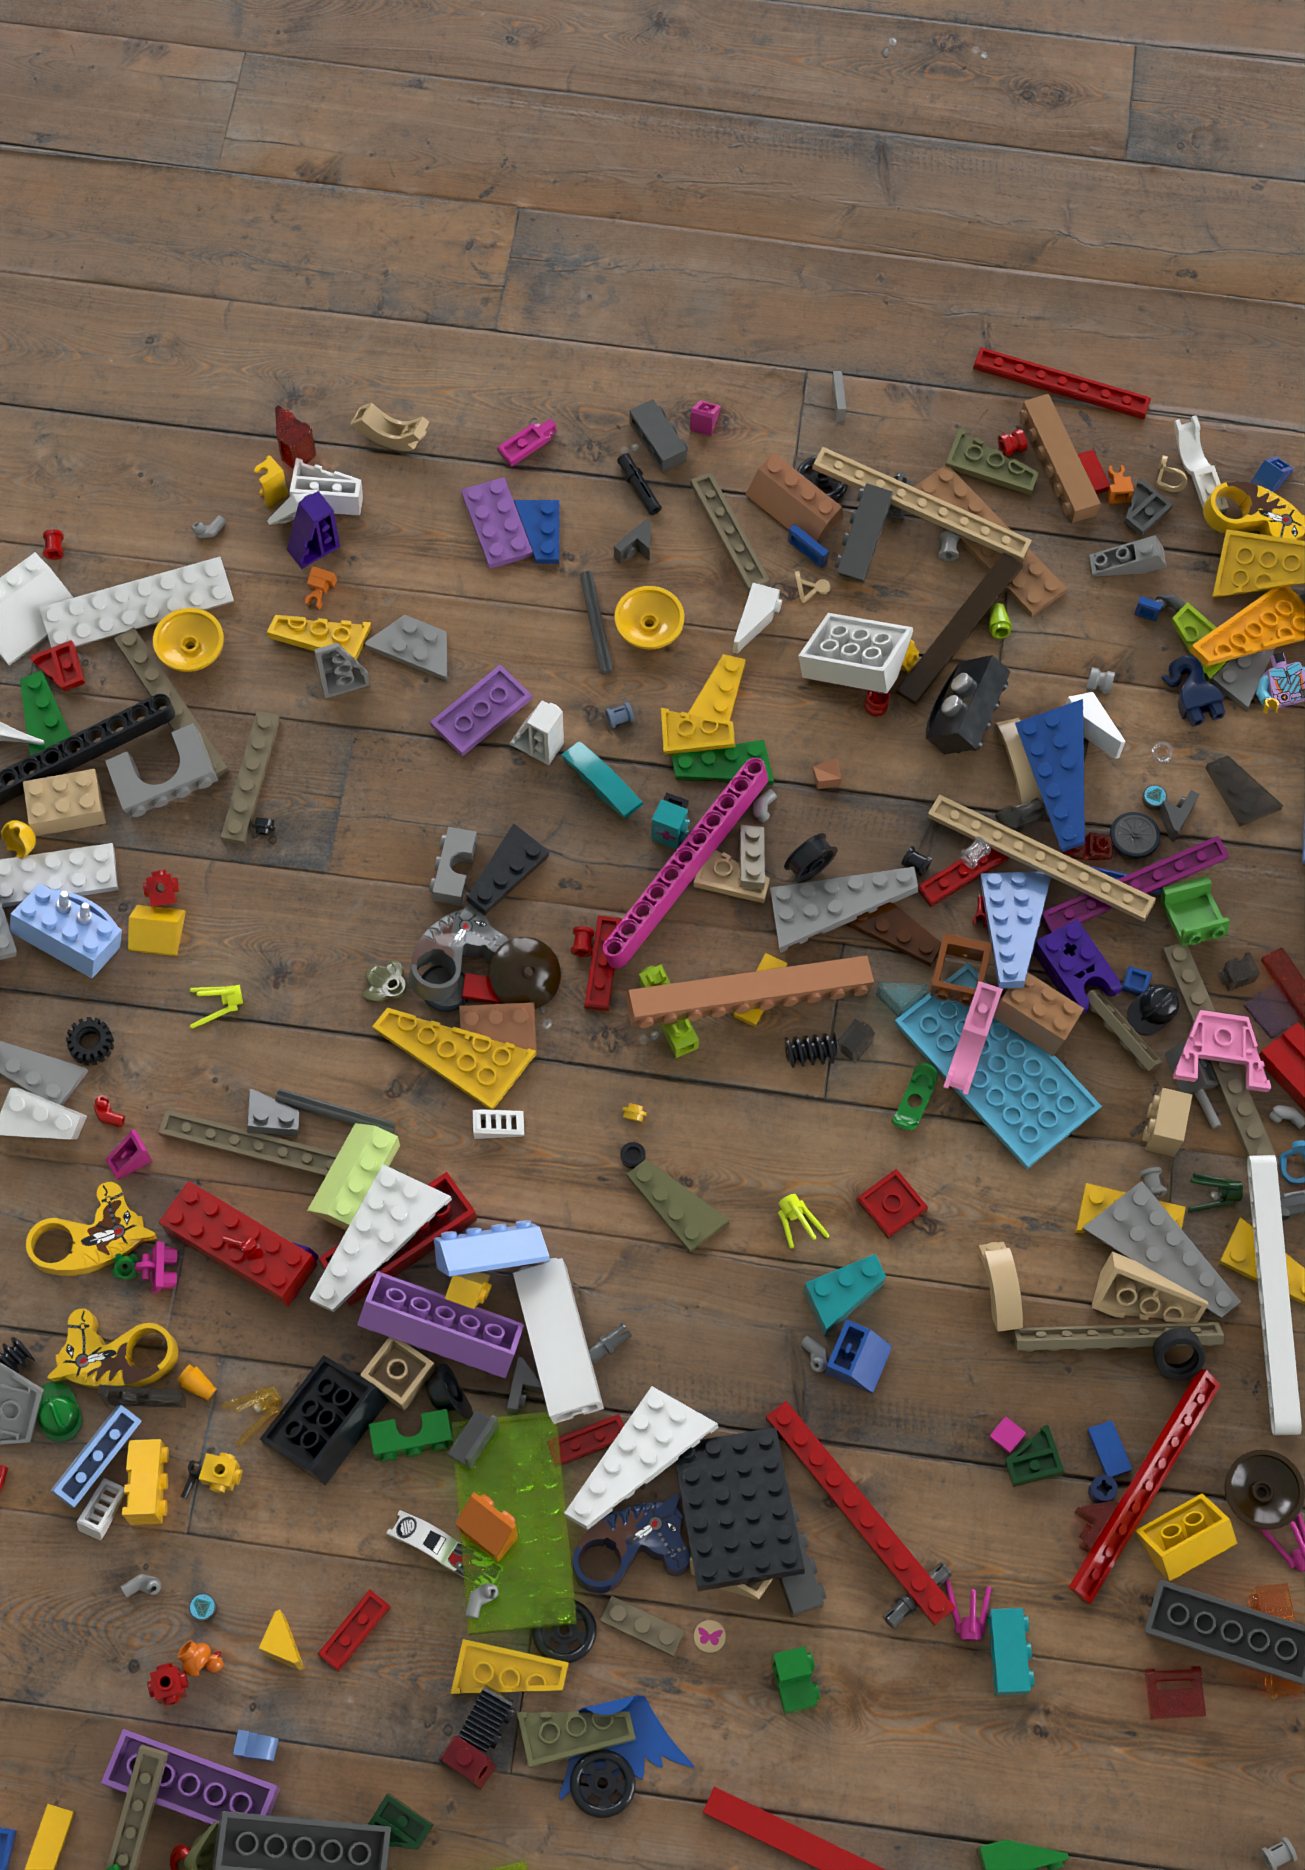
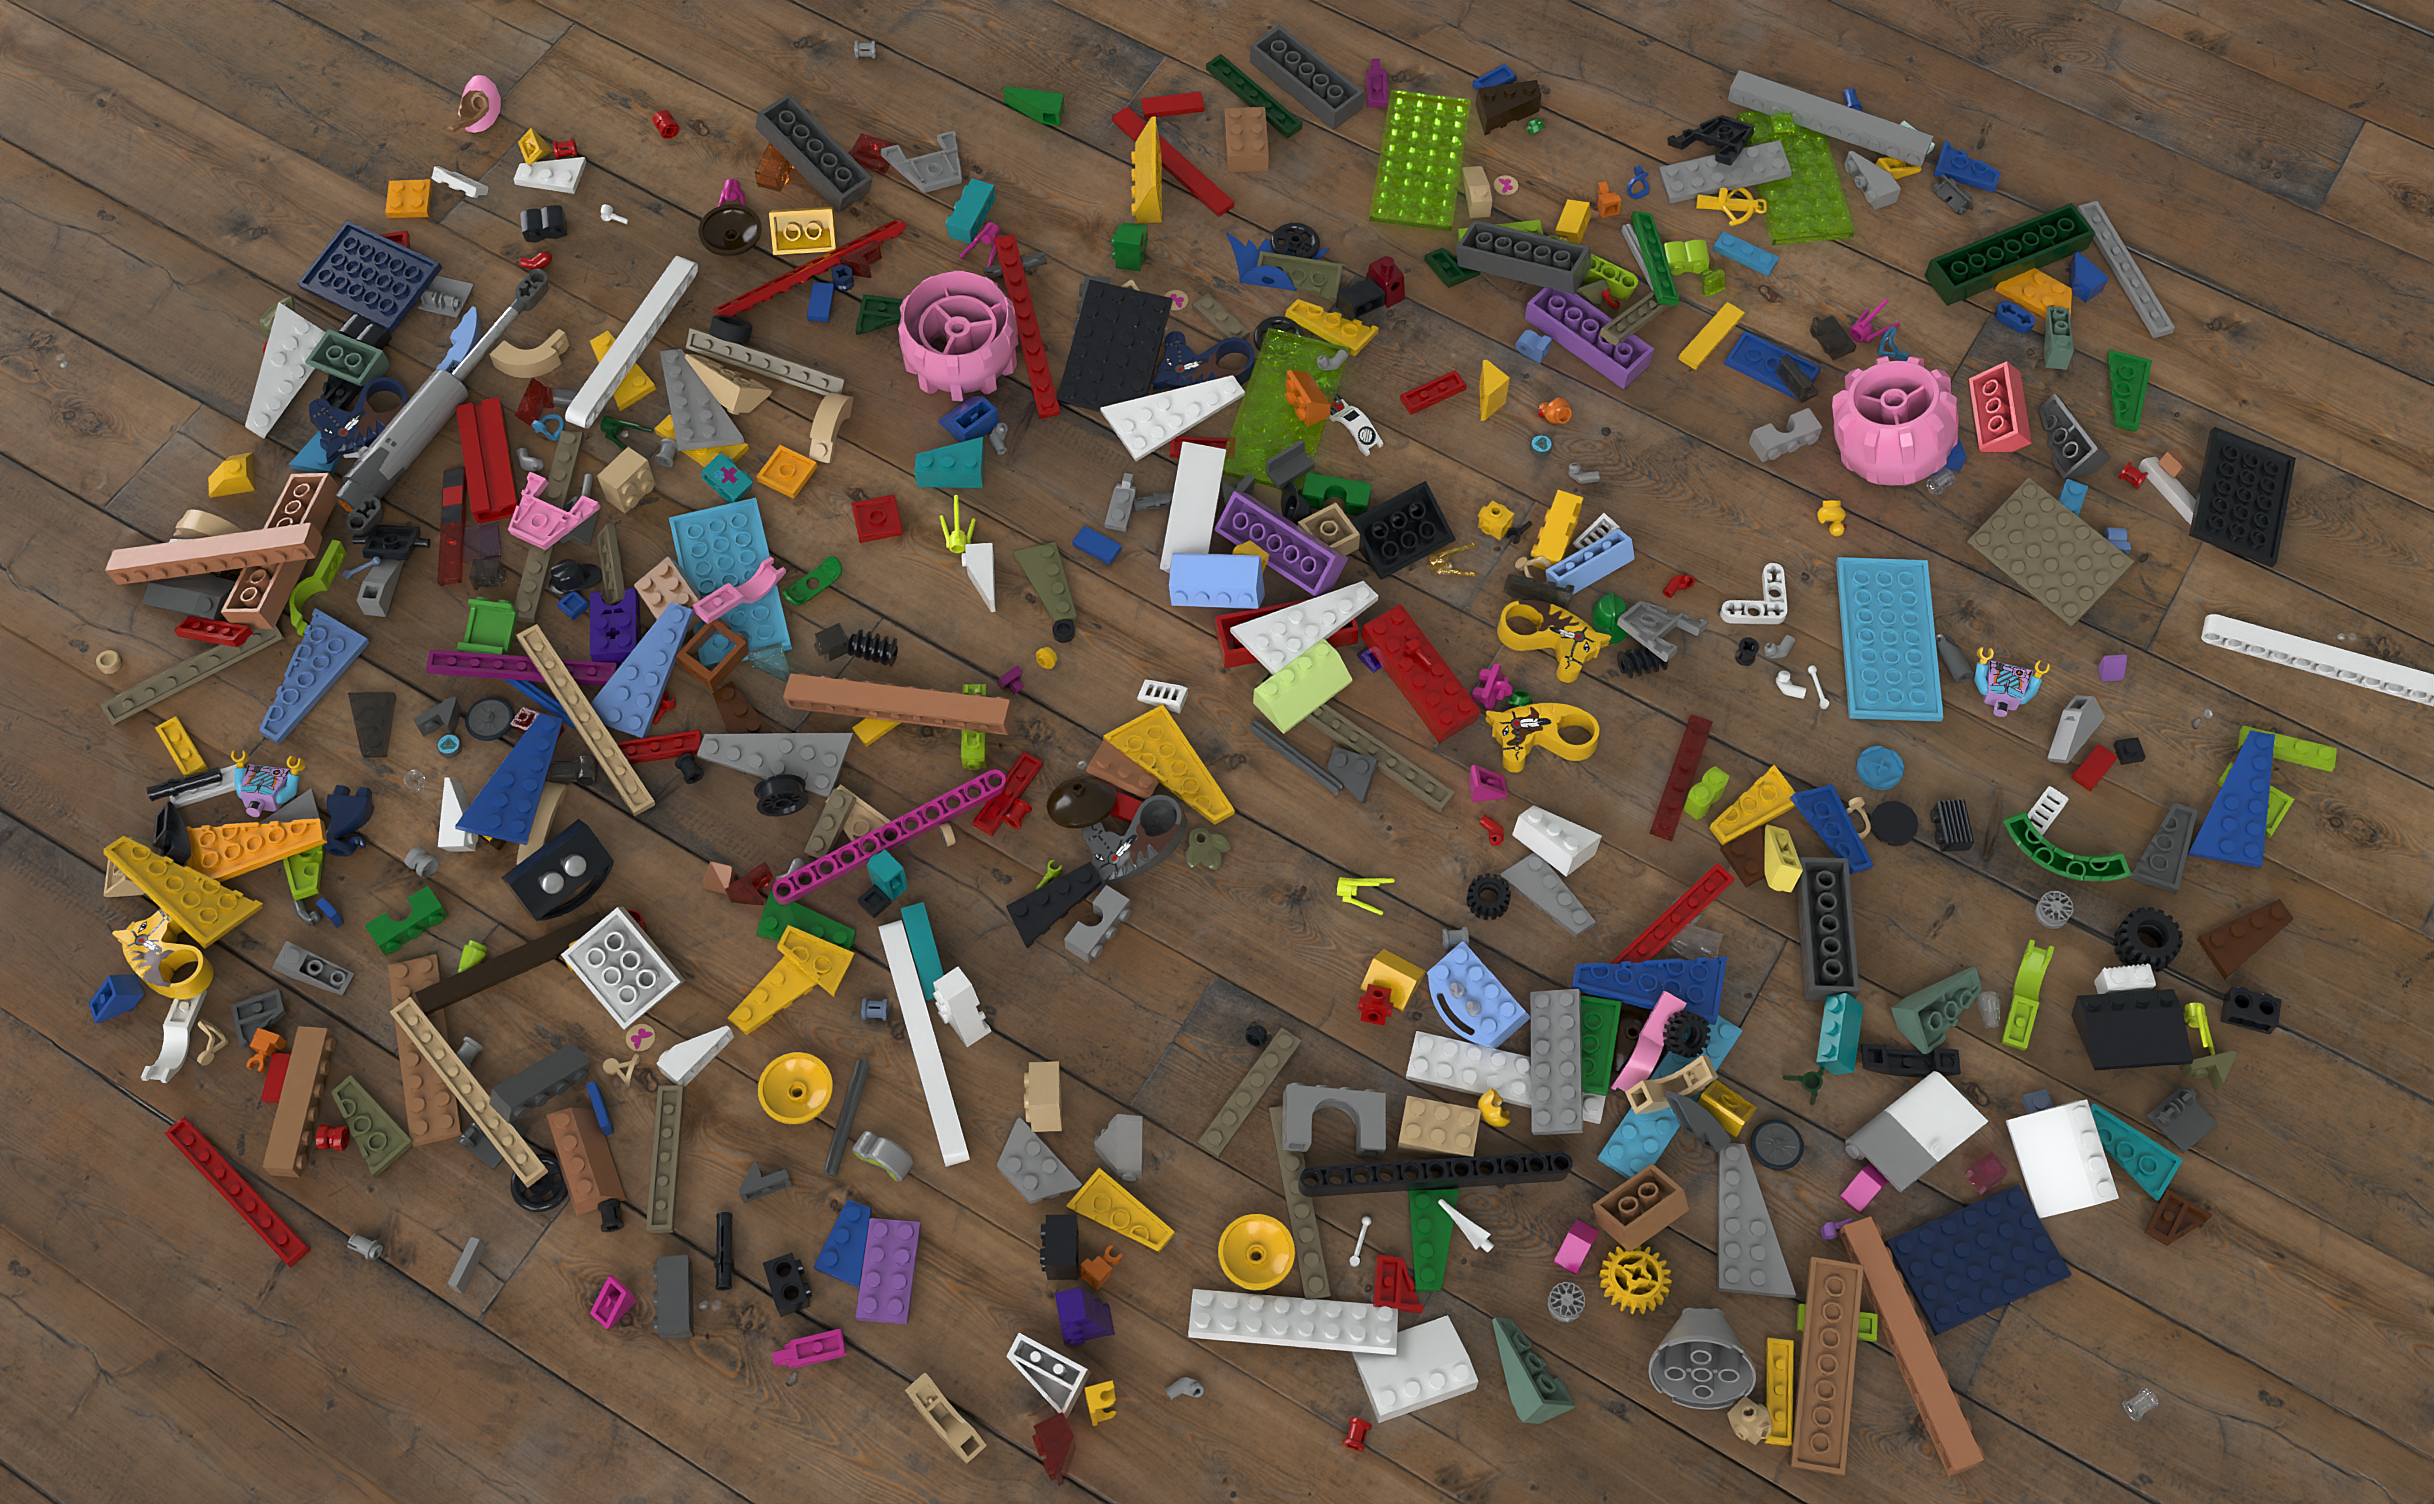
camera: 155 degrees left, 5 degrees down
(104, 677) = (1354, 1260): none -> white hinge
(109, 986) = (1454, 937): none -> light grey bush
(173, 1435) = (1523, 563): none -> tan piece
(176, 1690) = (1584, 401): red brick -> none
(196, 1382) = (1491, 593): light orange cone -> none
(287, 510) = (1091, 1352): white slope -> none
(356, 579) = (1061, 1246): none -> black brick
(426, 686) = (1043, 1096): none -> tan brick
(481, 710) = (997, 1067): medium lavender plate -> none
(524, 898) = (1051, 873): none -> lime hand
(546, 595) = (884, 1154): none -> light grey animal
(547, 687) = (924, 1044): none -> white beam
(576, 474) = (782, 1286): none -> black brick
(635, 891) = (947, 834): none -> tan tile
(642, 1327) = (1121, 505): none -> light grey hinge
(645, 1267) = (1097, 545): none -> blue tile
(657, 1074) = (1012, 680): none -> magenta tile
(745, 471) = (610, 1216): none -> black bush
(749, 1181) = (980, 569): none -> white slope
(793, 771) = (745, 889): none -> clear red slope
(811, 619) = (640, 1037): none -> tan sticker
(817, 1785) = (1147, 176): none -> yellow slope
(929, 381) = (369, 1248): none -> light grey pin
(946, 1392) = (971, 317): none -> bright pink wheel
(974, 852) = (636, 748): clear bush -> none
(1007, 1435) = (887, 337): dark pink tile -> none
(1016, 1214) = (787, 471): none -> light orange plate
(1068, 1171) = (727, 479): none -> teal brick
(1083, 612) = (392, 935): none -> green arch
(1087, 1693) = (929, 170): none -> light grey wing

